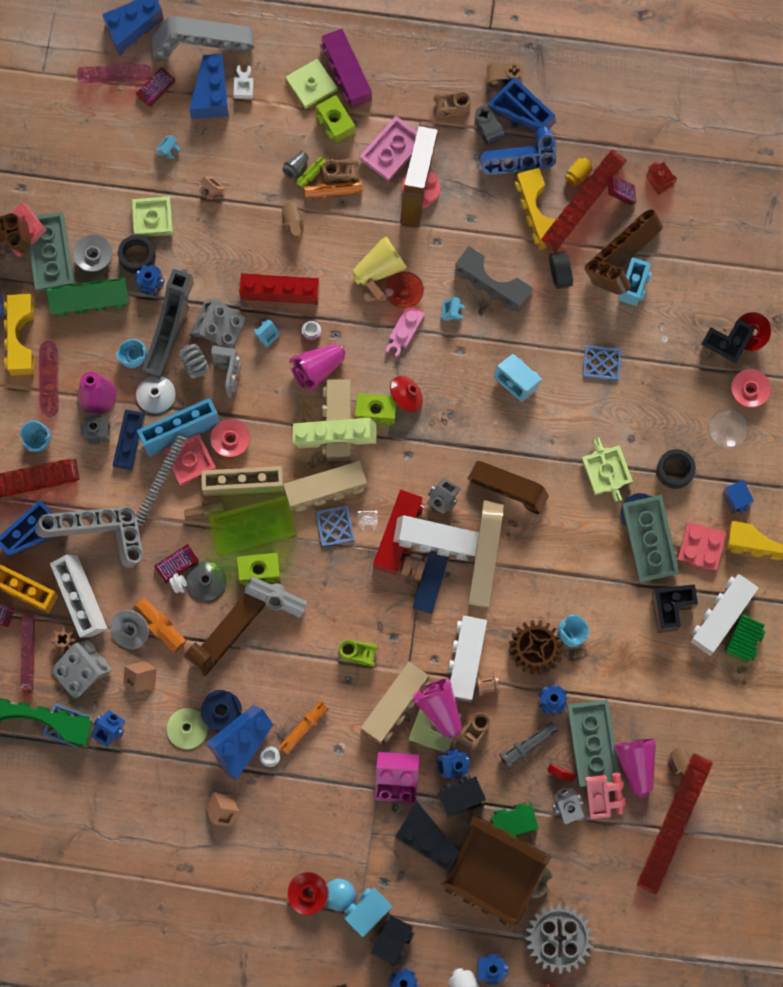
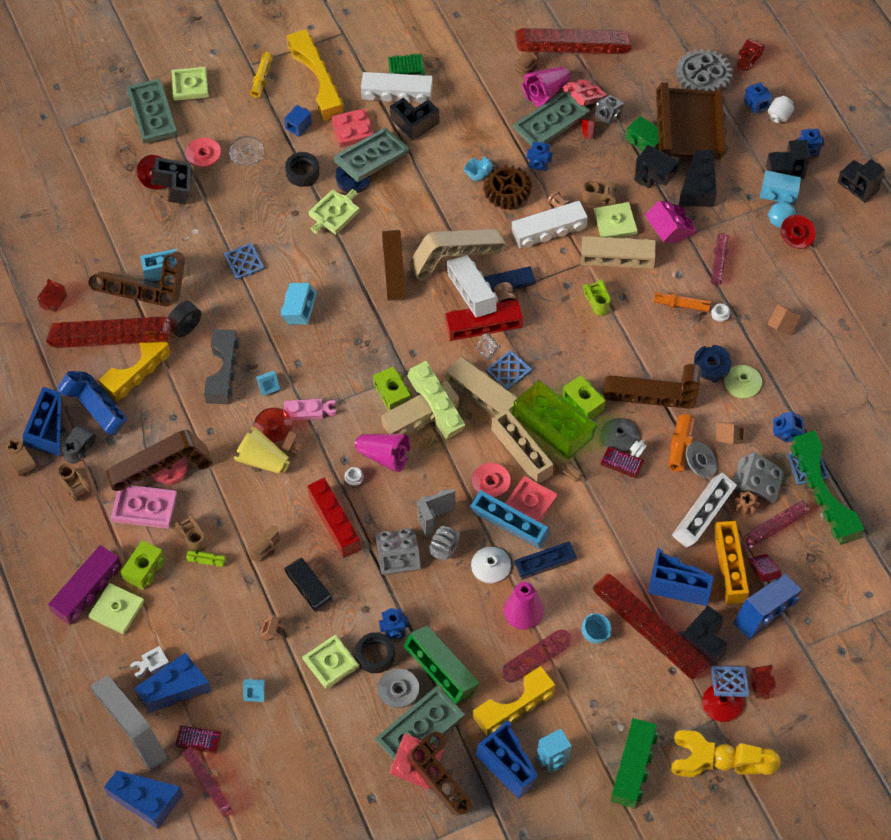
camera: 120 degrees left, 15 degrees down
(95, 429) = (556, 583): dark grey brick -> none
(97, 525) = (624, 521): light grey beam -> none
(131, 353) = (469, 598): medium azure hair -> none
(158, 484) = (566, 511): light grey piece -> none
(170, 322) = (424, 581): dark grey arch -> none
(232, 236) = (308, 584): none -> black beam
(240, 740) = (725, 331): blue wedge -> none
(267, 333) = (381, 506): medium azure tile -> none
(275, 596) = (598, 370): light grey piece -> none
(294, 166) = (207, 573): dark grey cone -> none
(333, 190) = (225, 545): orange pin -> none
(335, 803) = (719, 260): none -> clear pink pin
(406, 393) = (364, 373): red dish -> none
(440, 707) = (599, 215): dark pink cone -> none
(443, 496) = (433, 302): flat silver brick -> none
(452, 764) = (635, 191): blue brick -> none
(520, 750) = (590, 159): dark grey pin -> none
(579, 171) = (81, 356): yellow brick -> none
(621, 190) = (83, 313): dark red tile -> none

